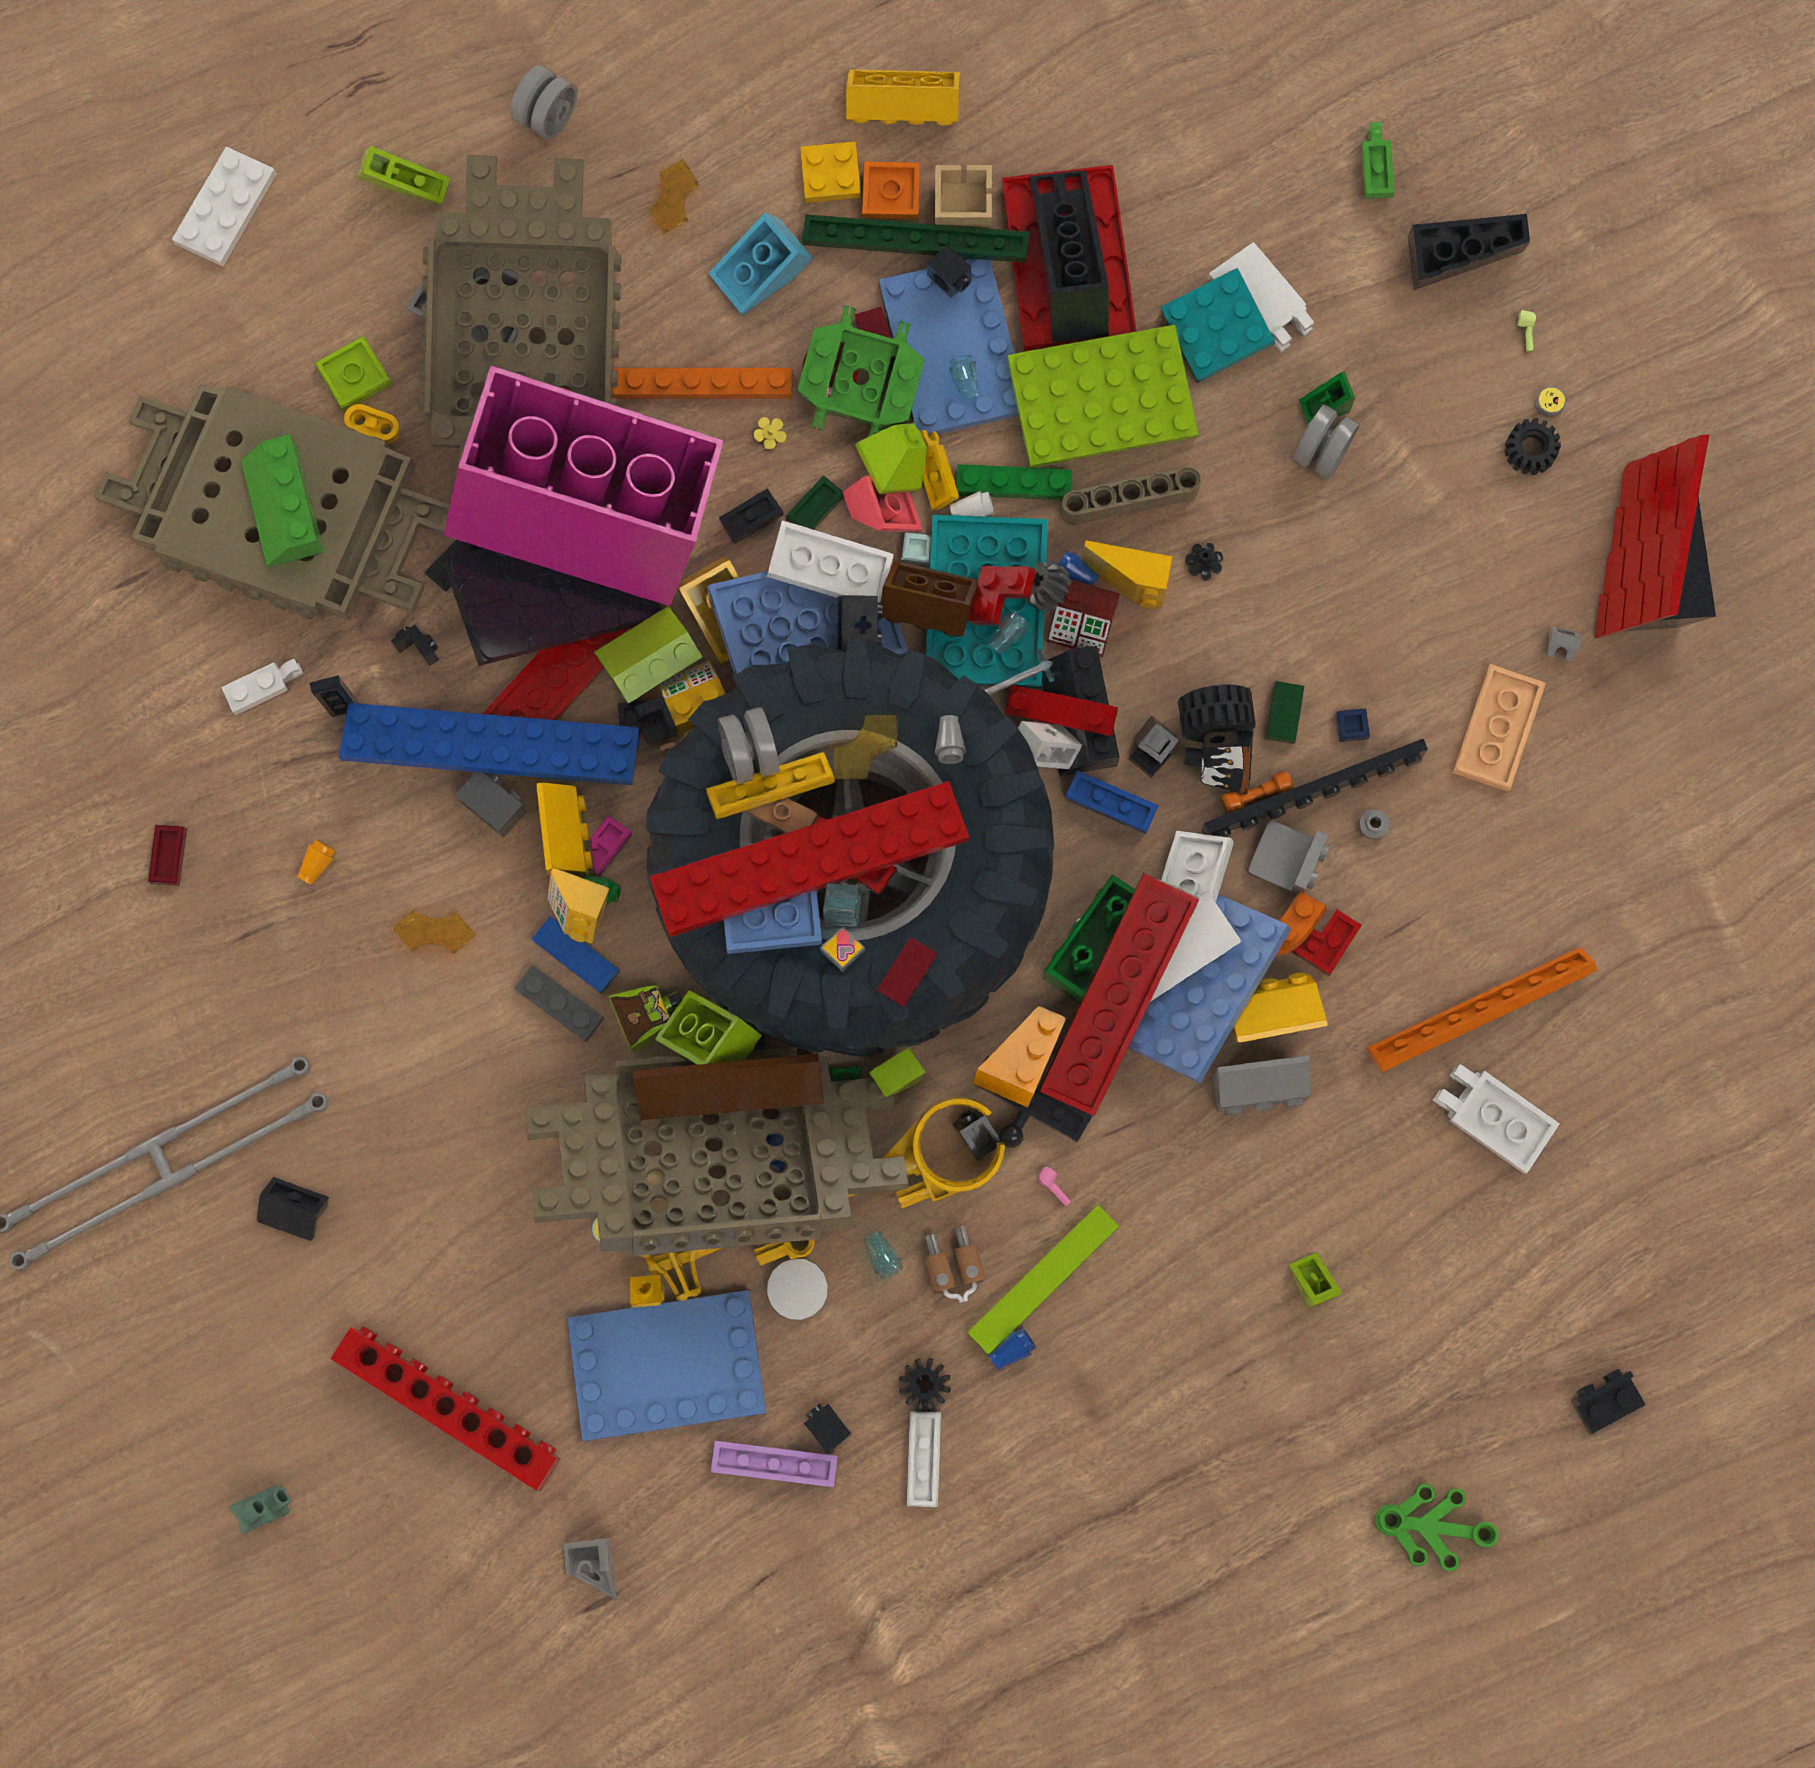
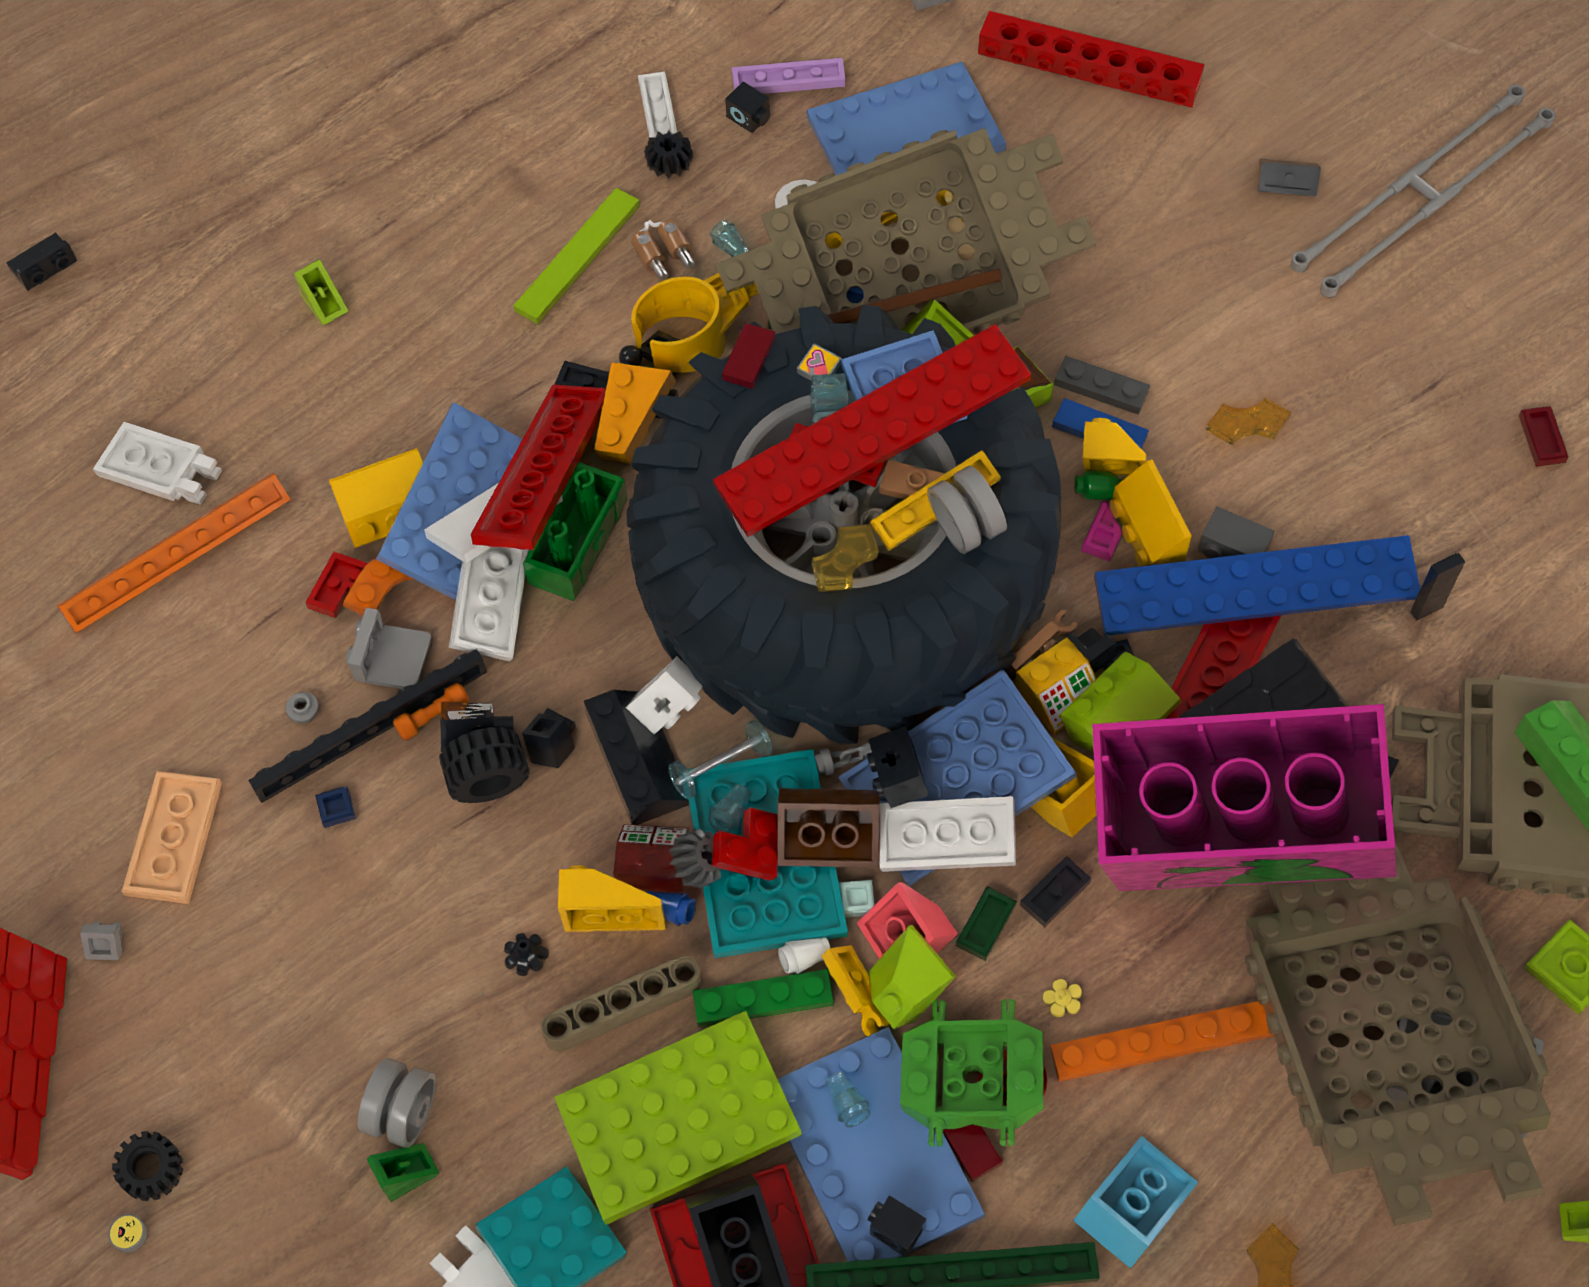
camera: 165 degrees right, 15 degrees down
(260, 685) = (1524, 608): white plate -> none
(316, 860) = (1391, 457): light orange cone -> none
(374, 422) = (1524, 906): yellow plate -> none
(411, 635) = (1372, 680): black bracket -> none
(949, 742) = (754, 568): light grey cone -> none
(1014, 1348) = (593, 195): blue cone -> none
(1046, 1178) = (588, 330): bright pink hand -> none
(1061, 710) = (653, 735): red plate -> none
(1111, 802) = (584, 671): blue plate -> none
(1262, 1085) = (390, 437): light grey slope -> none
(1285, 712) = (411, 804): dark green tile -> none
(1430, 1526) = (229, 141): bright green plant -> none

